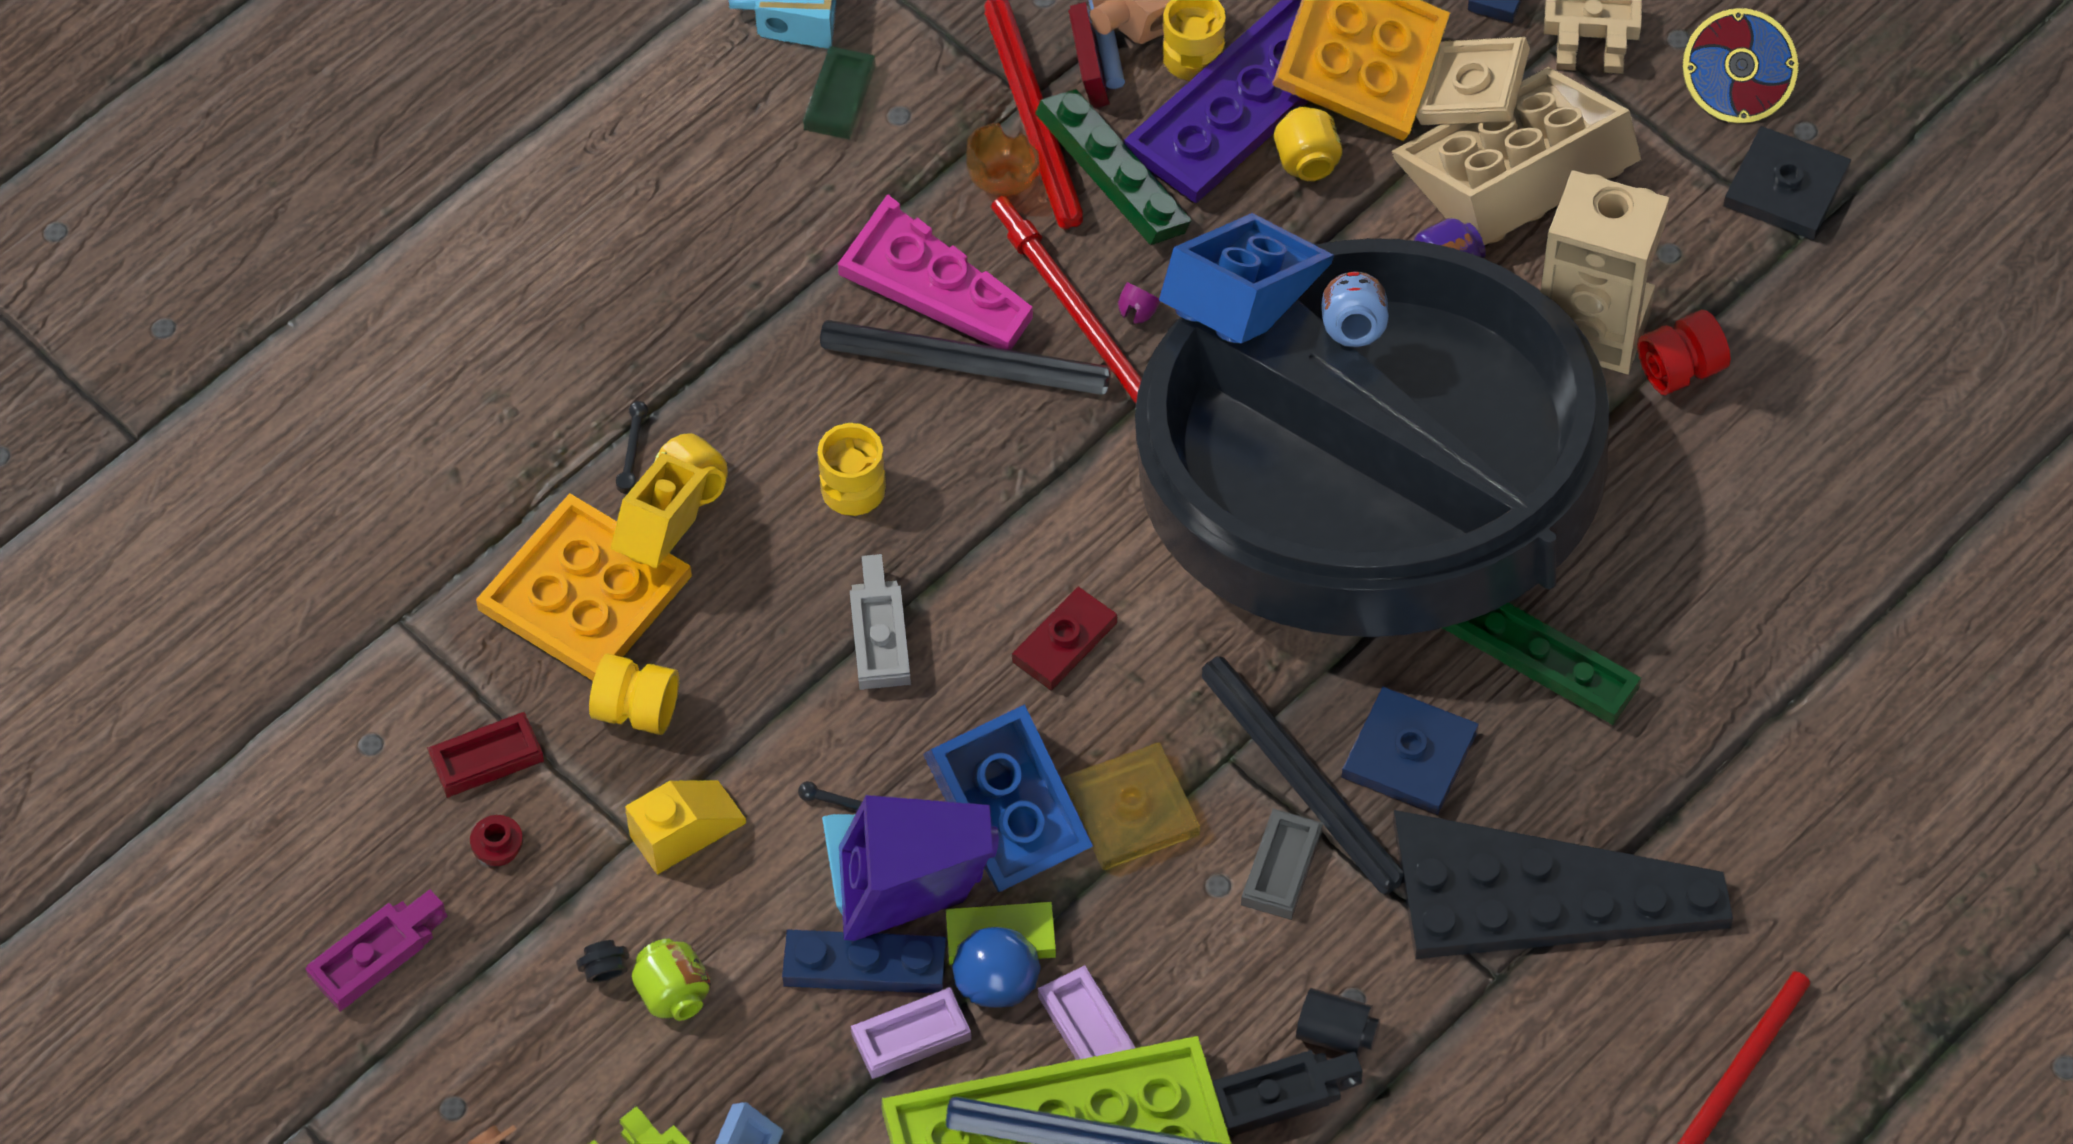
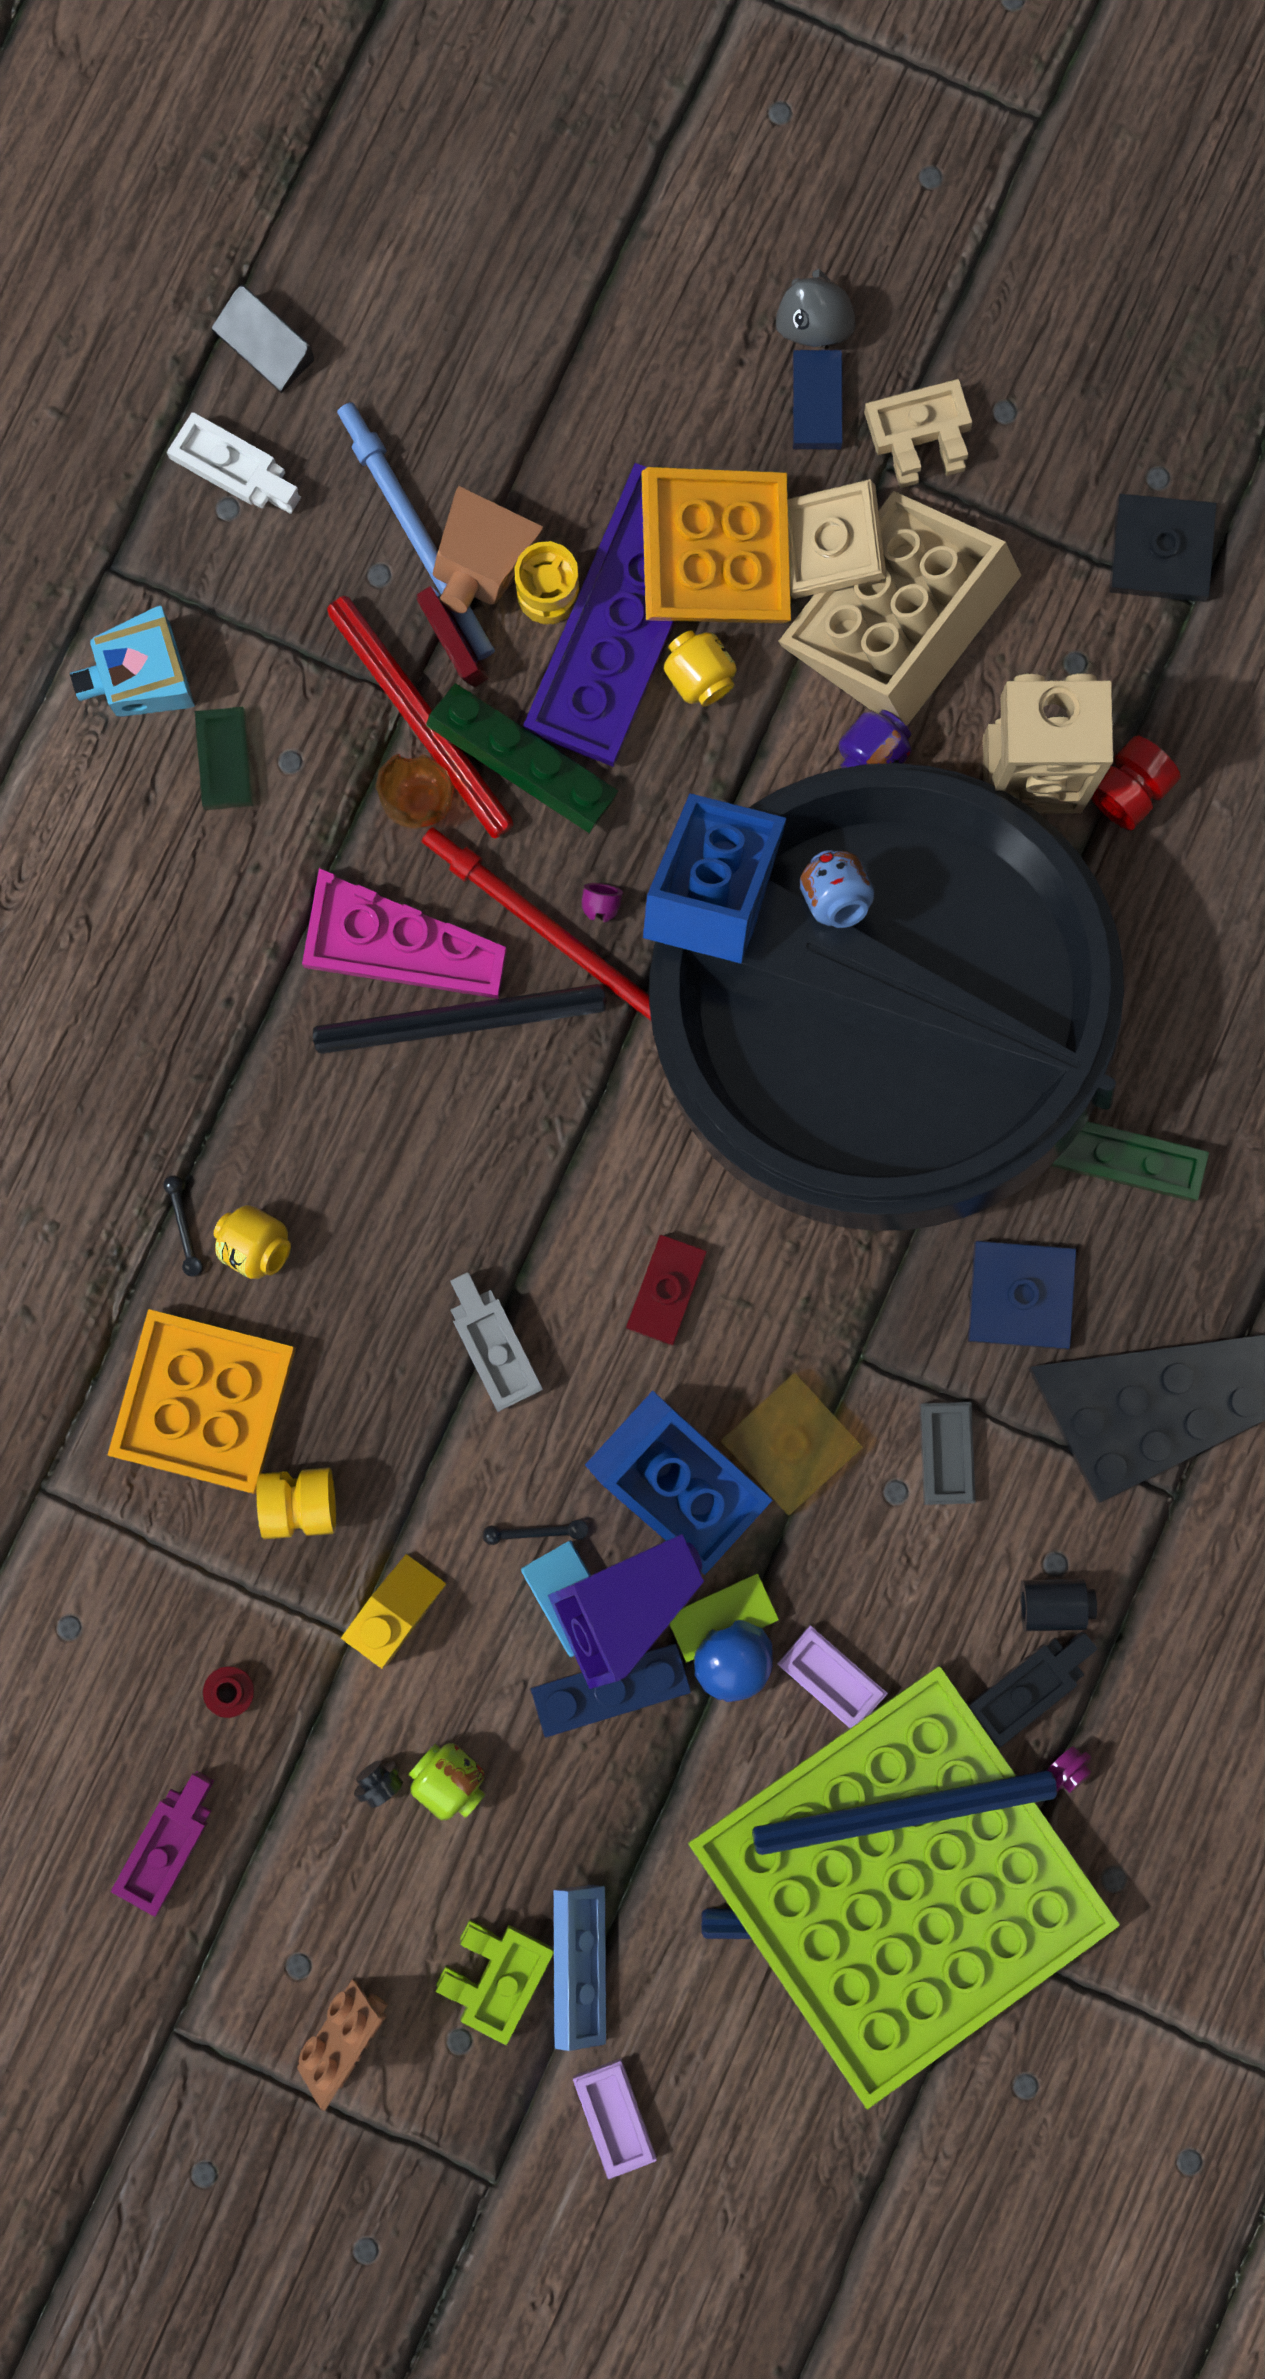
camera: 20 degrees left, 25 degrees up
(485, 754) = (180, 1604): dark red tile -> none
(658, 510) = (246, 1315): yellow brick -> none
(851, 469) = (404, 1190): yellow wheel -> none
(911, 1033) = (679, 1746): lavender tile -> none
(1302, 775) = (933, 1356): black axle -> none
(1740, 65) = (1080, 433): shield -> none

